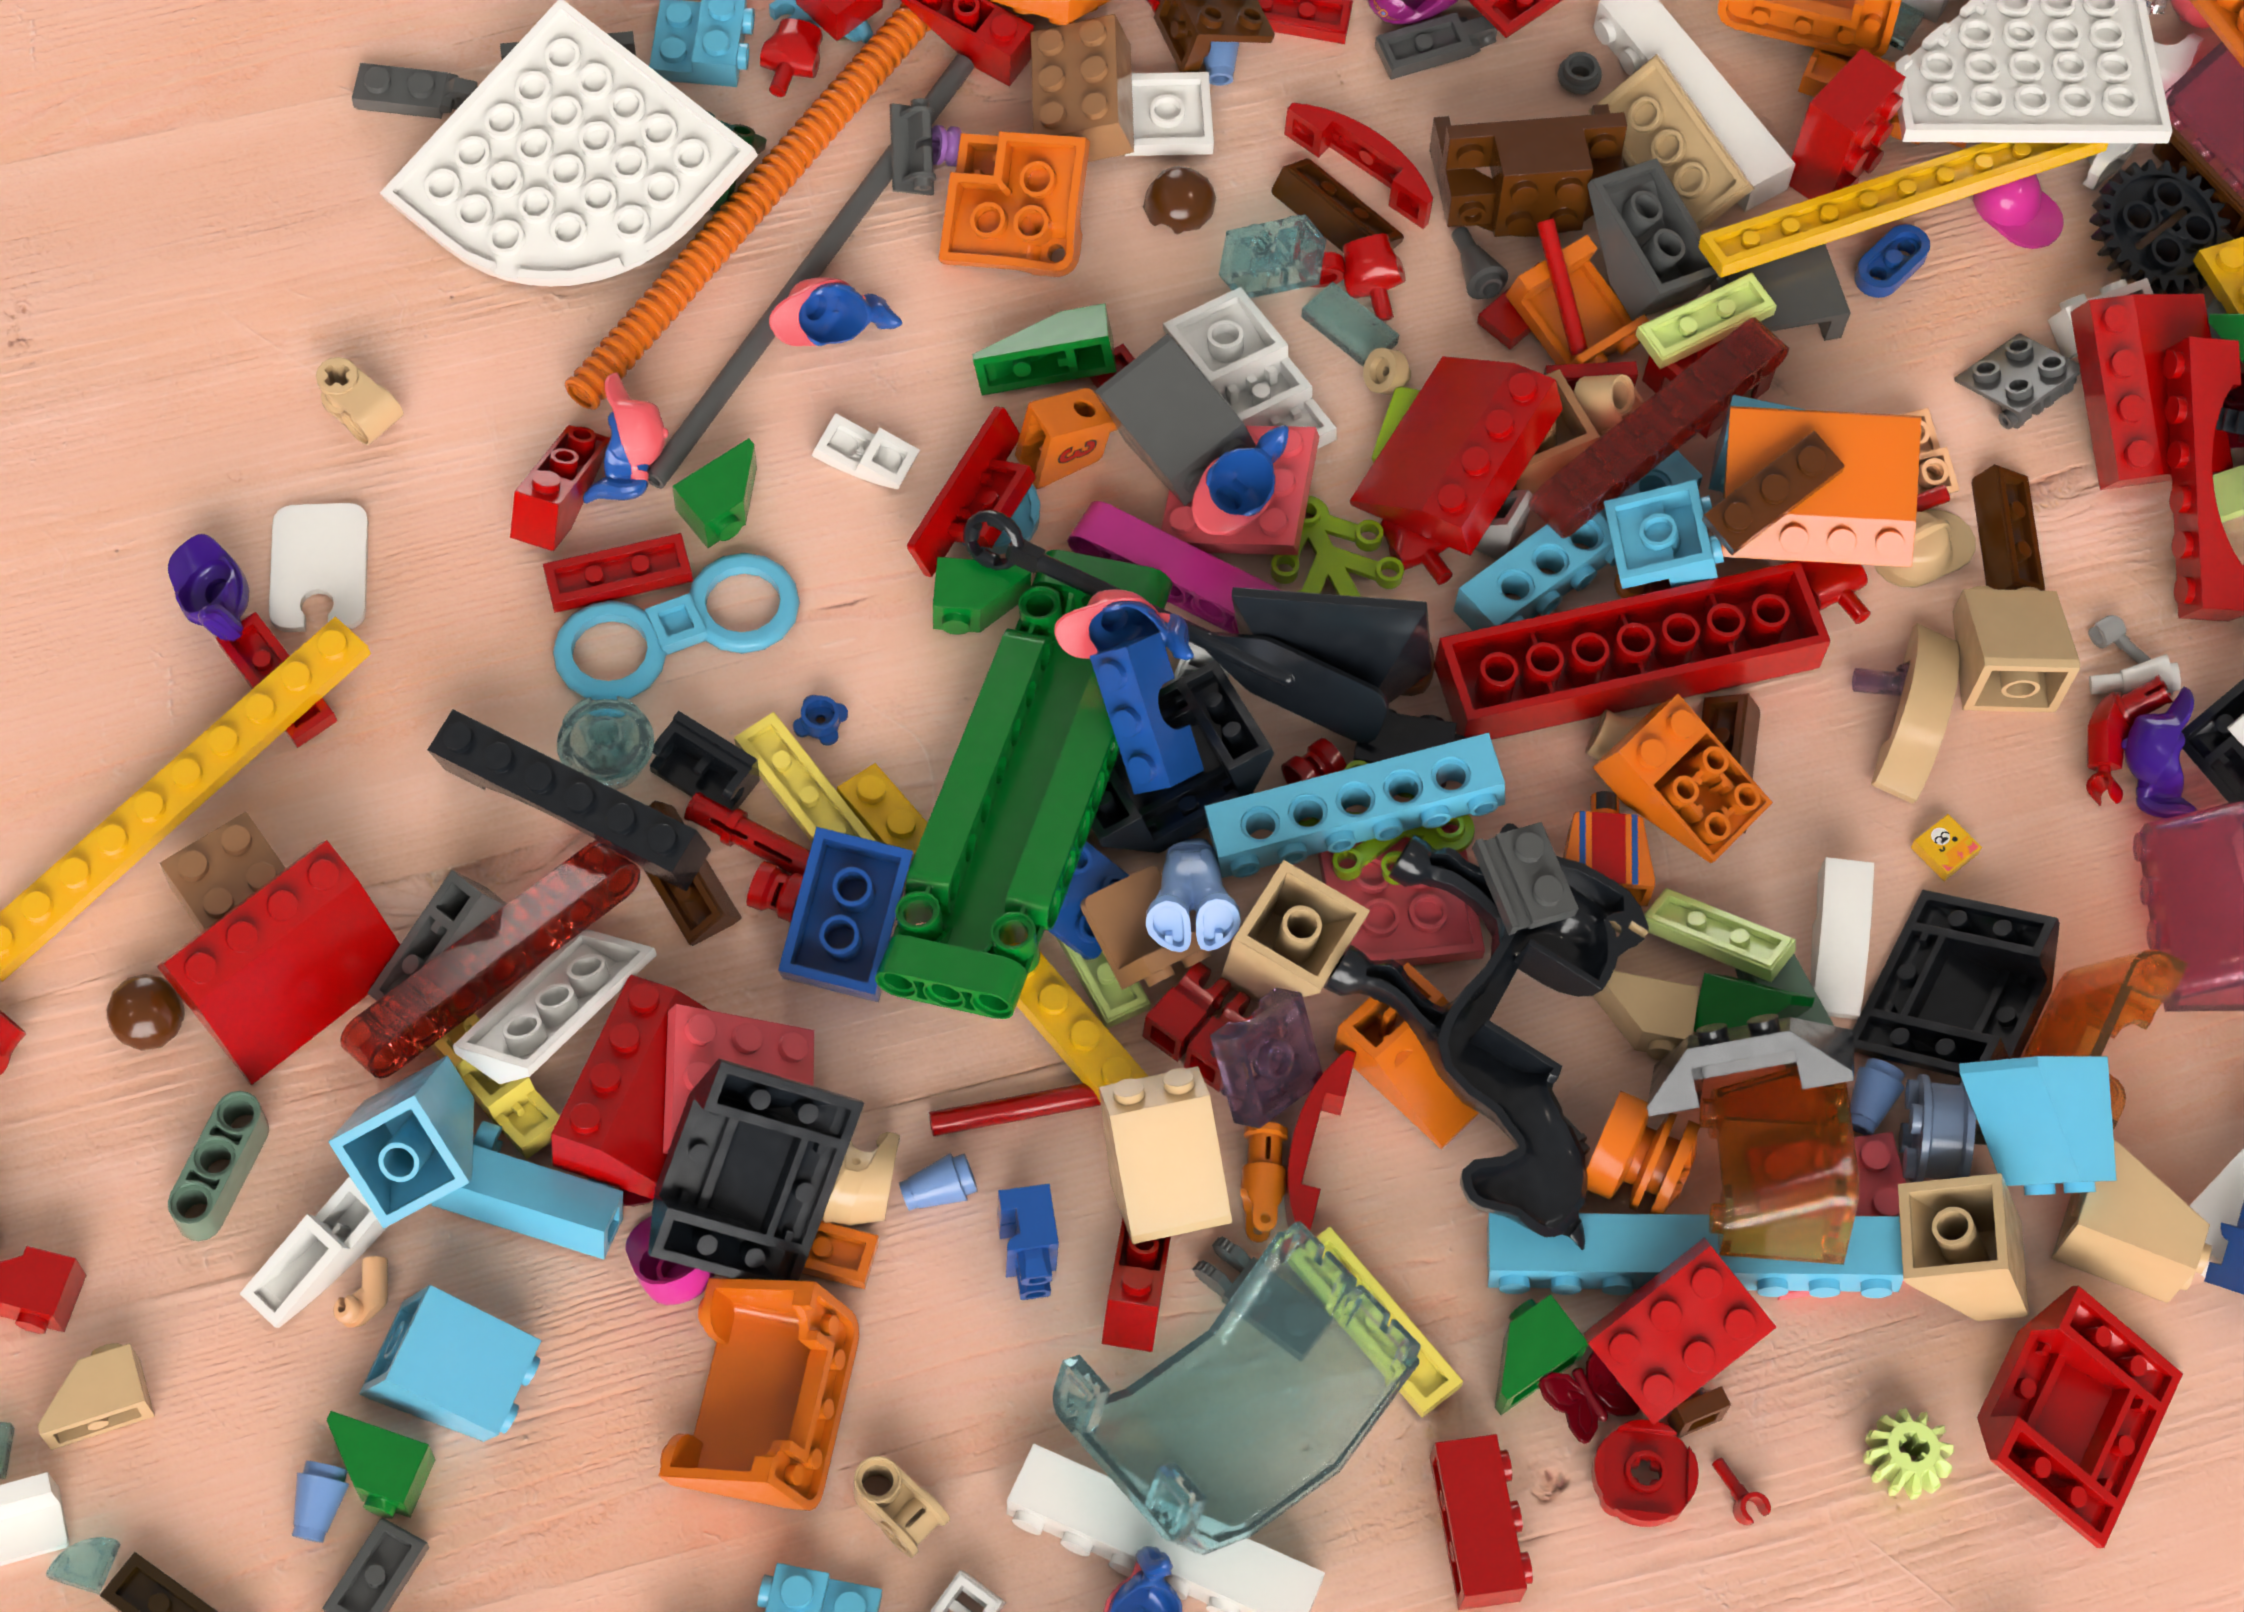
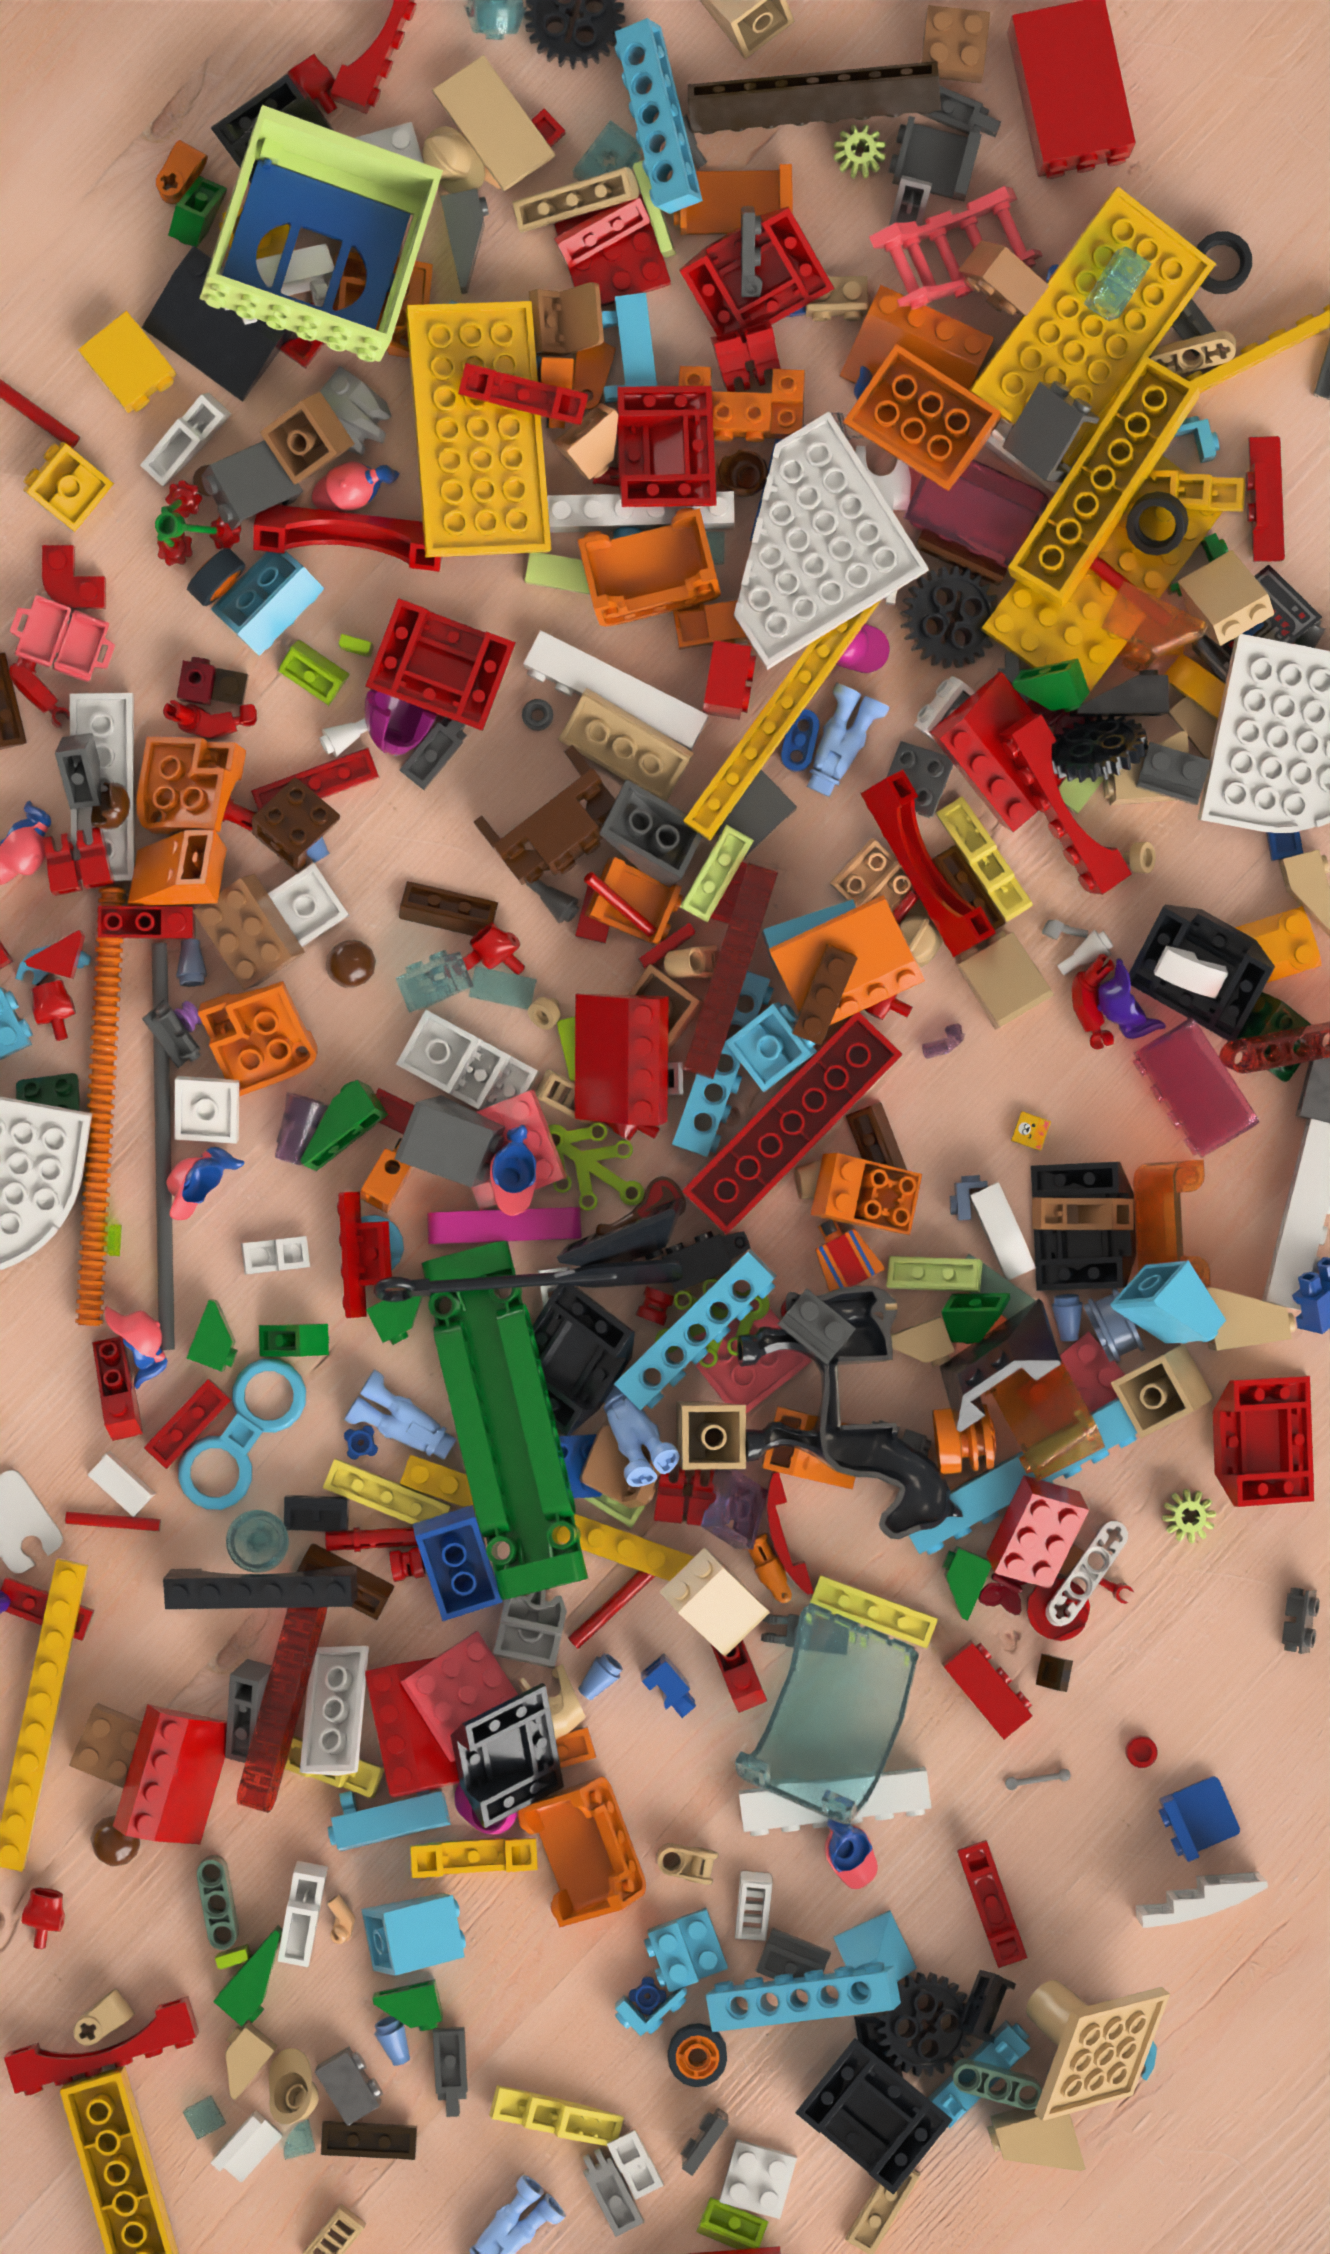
camera: 25 degrees left, 25 degrees up
(130, 1474) = (291, 2087): none -> tan piece
(184, 1297) = (248, 1987): none -> green slope
(185, 1249) = (233, 1956): none -> lime tile
(210, 1523) = (349, 2085): none -> flat silver brick
(410, 1142) = (314, 1837): medium azure slope -> none
(440, 633) = (113, 1521): none -> red bar
(484, 595) = (121, 1483): none -> white panel
(602, 1316) = (473, 1856): none -> yellow slope
(680, 323) = (114, 1240): none -> clear neon green tile
(823, 551) = (293, 1340): none -> green slope
(888, 1063) = (531, 1629): none -> light grey plate
(893, 724) = (406, 1422): none -> light blue piece
(896, 247) = (206, 1109): none -> white plate
(984, 102) = (191, 966): none -> sand blue cone
(1002, 314) = (298, 1126): none -> plant
(1118, 617) = (508, 1304): hair -> none
(1130, 686) = (565, 1364): blue arch -> none
(1322, 128) = (405, 863): red slope -> none
(1362, 462) = (545, 1086): none -> tan slope
(1590, 1556) = (1054, 1672): none -> dark brown plate
(1713, 1435) = (1088, 1574): none -> white beam
(1802, 873) = (961, 1201): none -> sand blue bracket
(1921, 714) = (974, 1051): tan slope -> none
(1940, 292) = (841, 745): none -> light blue piece
(1966, 969) = (1082, 1213): none -> medium nougat arch
(1975, 374) = (894, 811): none -> red arch
(2059, 507) = (984, 859): none -> light yellow slope

